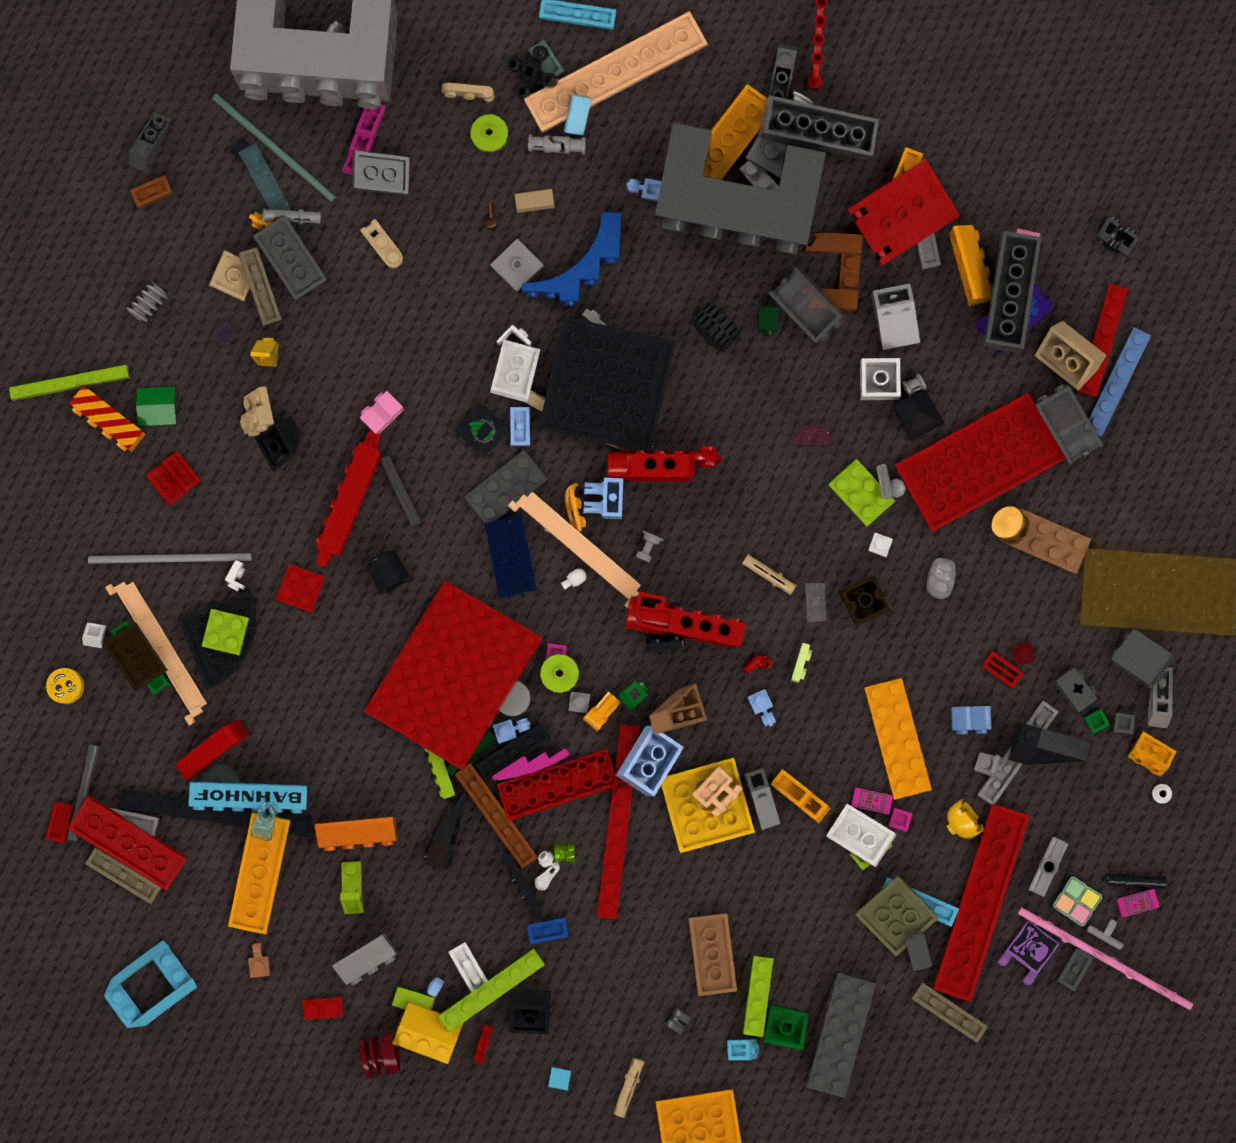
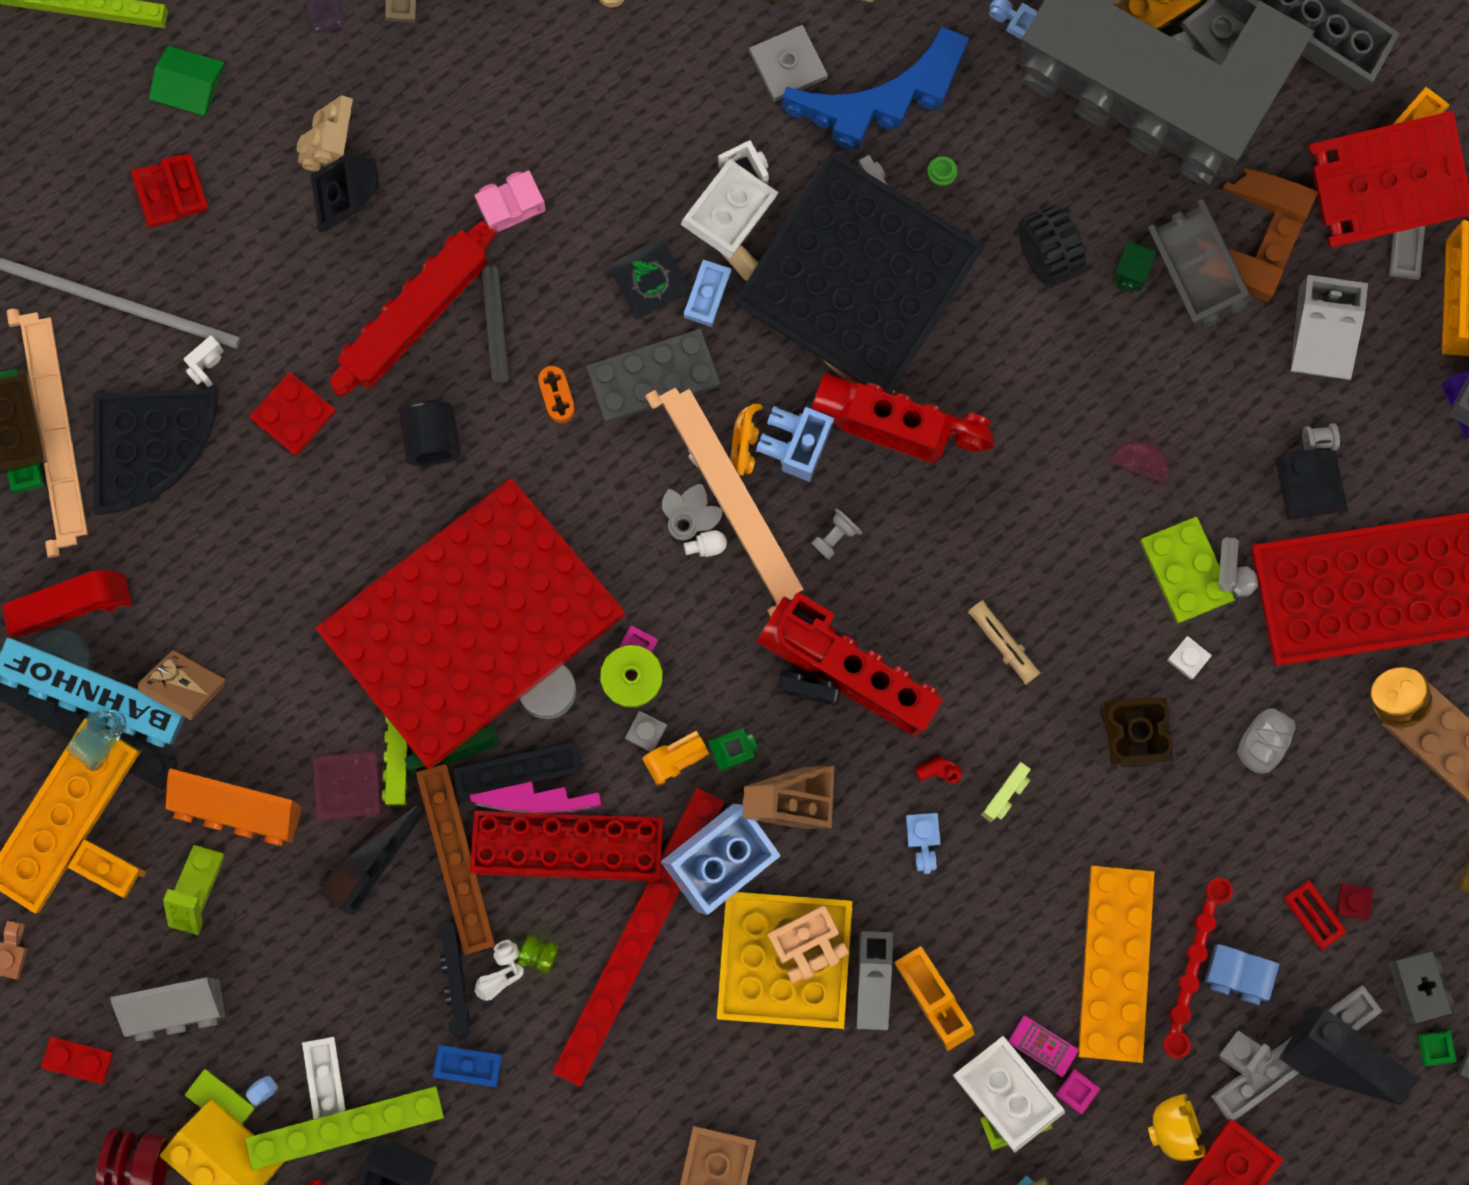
camera: 15 degrees right, 5 degrees down
(106, 418) = (107, 71): brick -> none
(225, 632) = (154, 436): lime plate -> none
(265, 352) = (371, 56): yellow slope -> none
(297, 894) = (105, 868): none -> light orange panel
(299, 772) = (181, 685): none -> medium nougat tile
(417, 796) = (347, 786): none -> clear pink plate
(449, 523) = (563, 392): none -> orange beam
(505, 730) = (519, 735): light blue plate -> none
(510, 556) = (622, 477): clear blue tile -> none
(557, 560) = (690, 508): none -> light grey plate
(633, 300) = (942, 171): none -> bright green plate
(815, 602) = (1060, 709): clear plate -> none
(880, 379) = (1273, 410): white brick -> none
(946, 772) = (1176, 1043): none -> red bar

